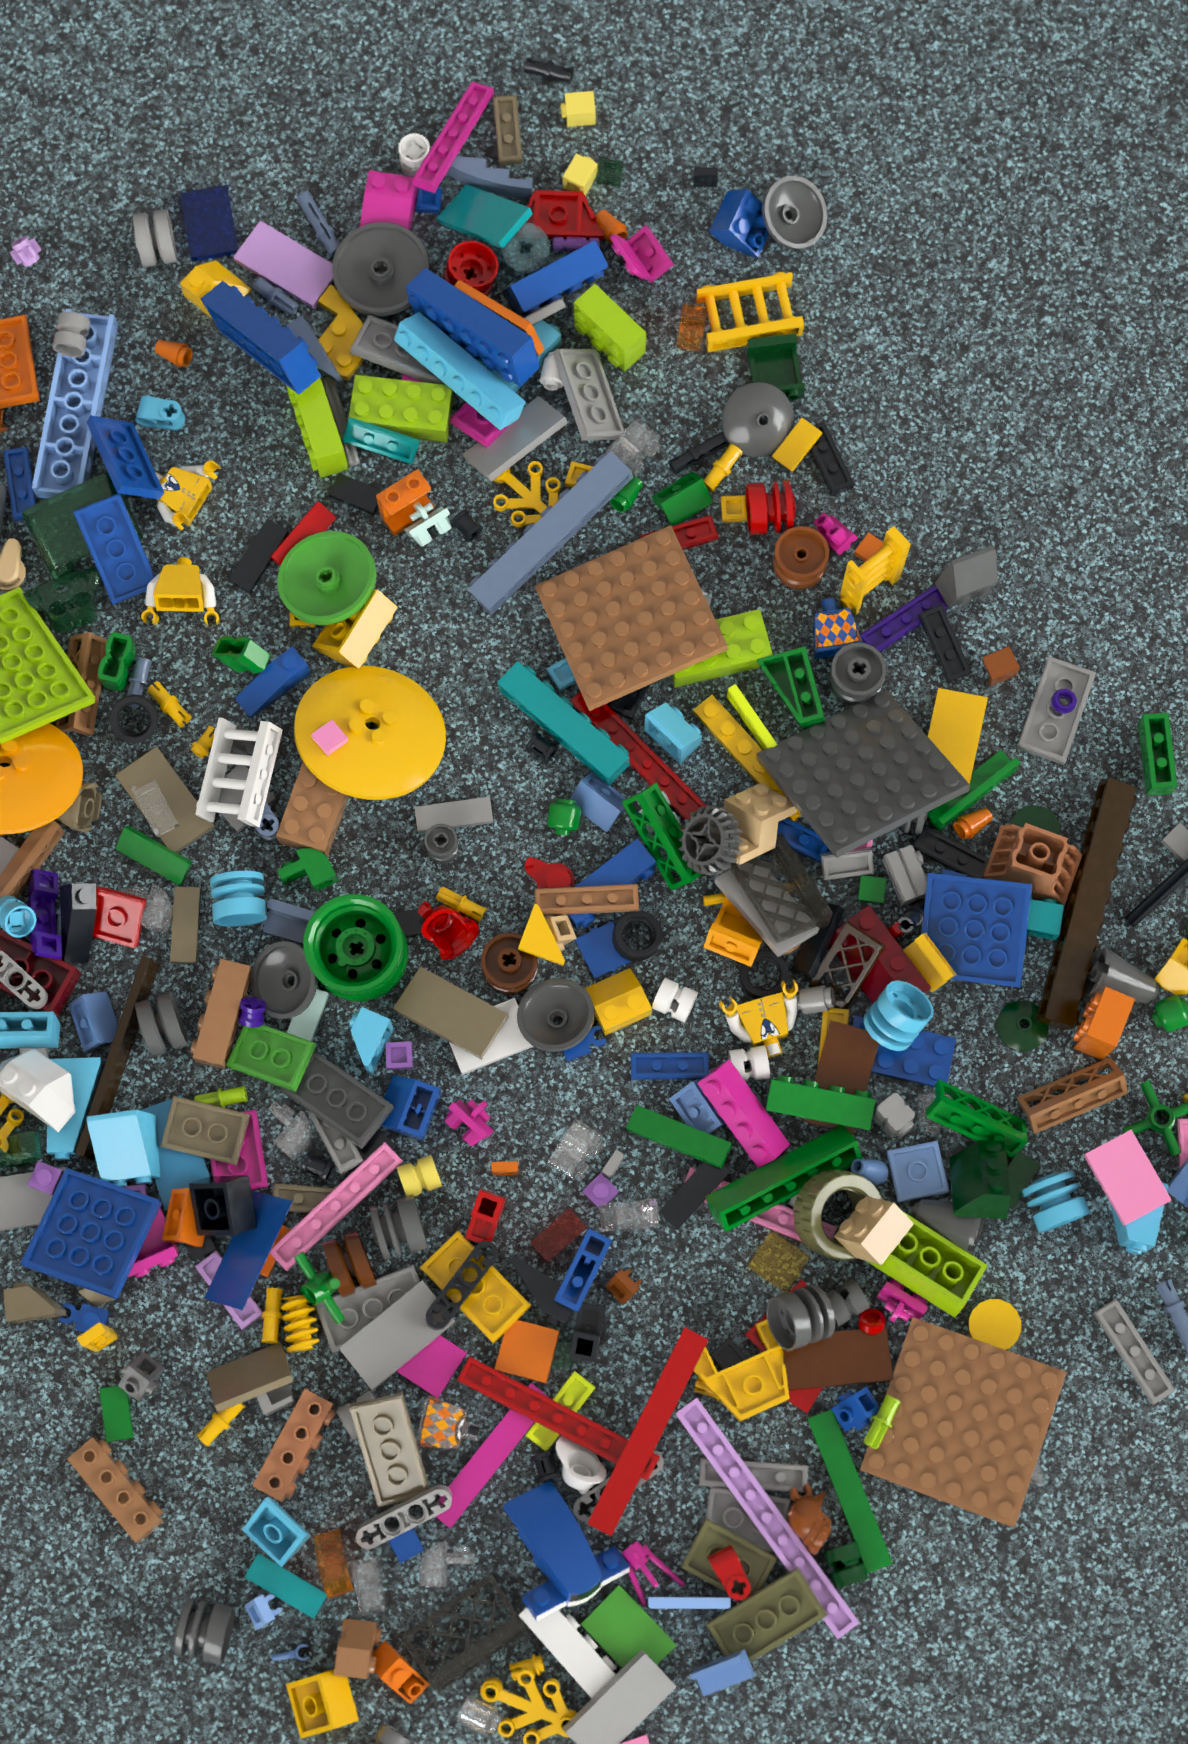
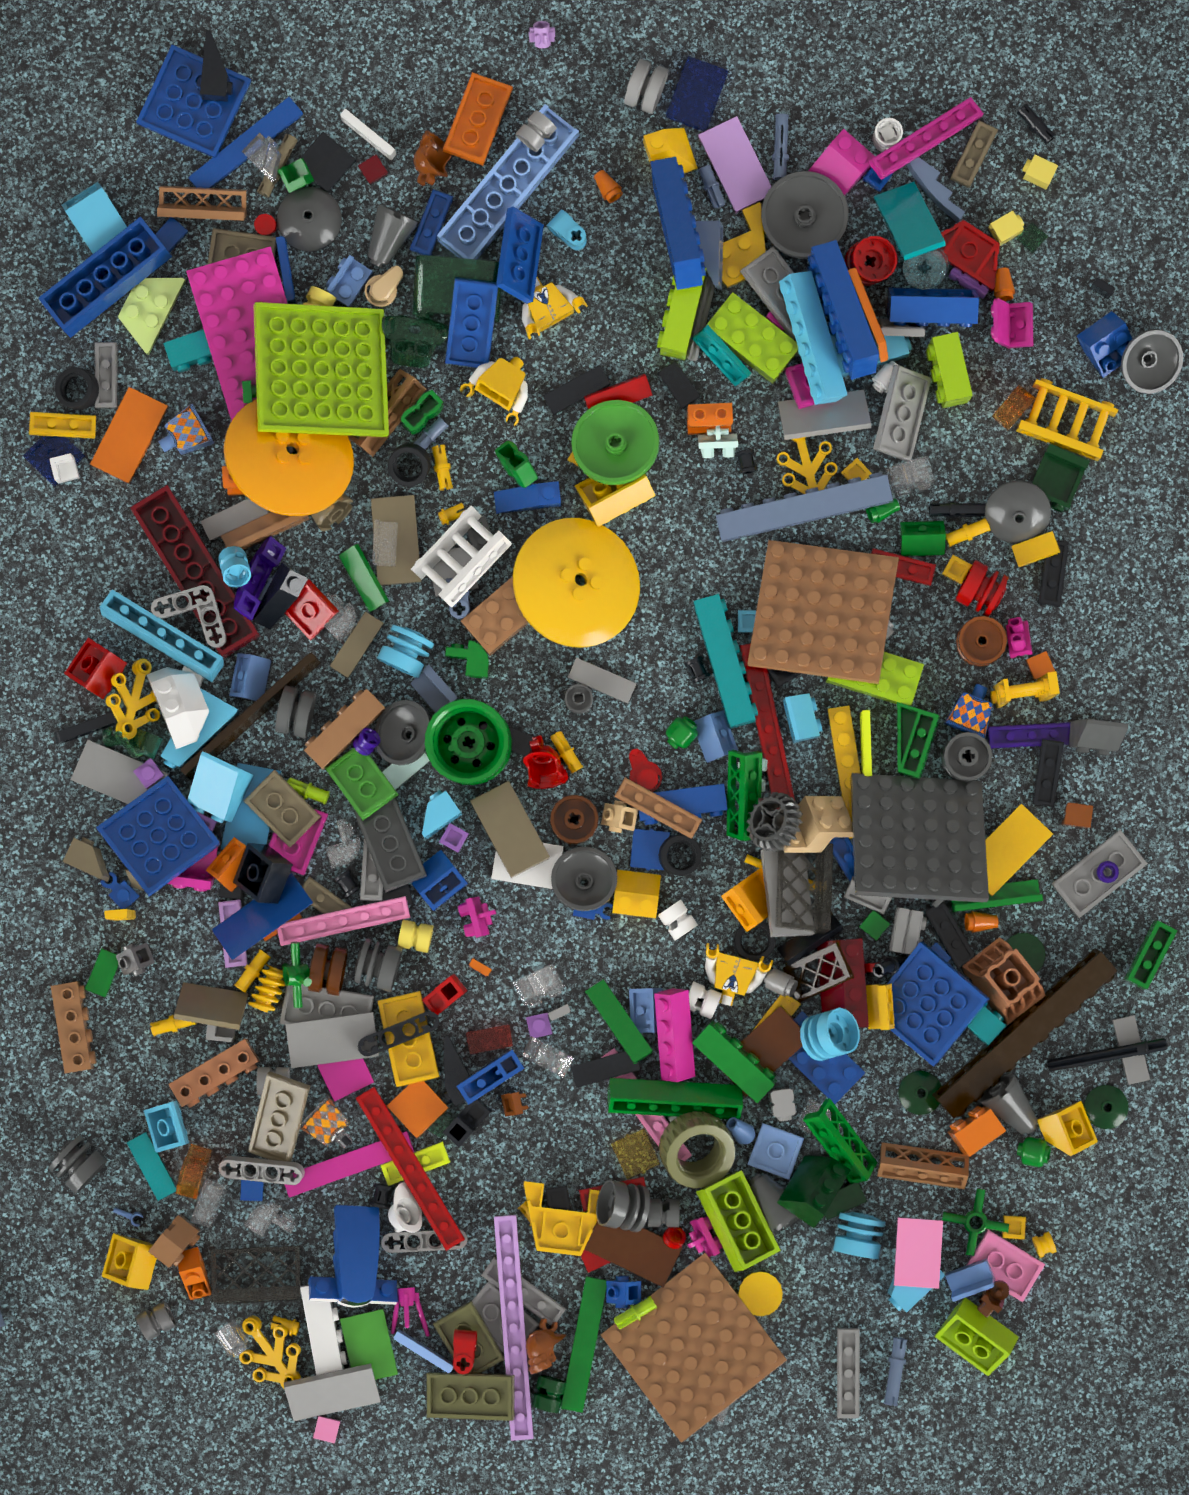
camera: 30 degrees right, 10 degrees up
(260, 1611) = (123, 1173): light blue tile -> none
(329, 737) = (541, 574): bright pink tile -> none
(539, 939) = (604, 817): yellow tile -> none
(647, 1431) = (467, 1217): red tile -> none
(669, 1065) = (645, 964): blue tile -> none
(723, 1672) = (418, 1413): medium blue panel -> none
(873, 1229) = (712, 1178): tan brick -> none

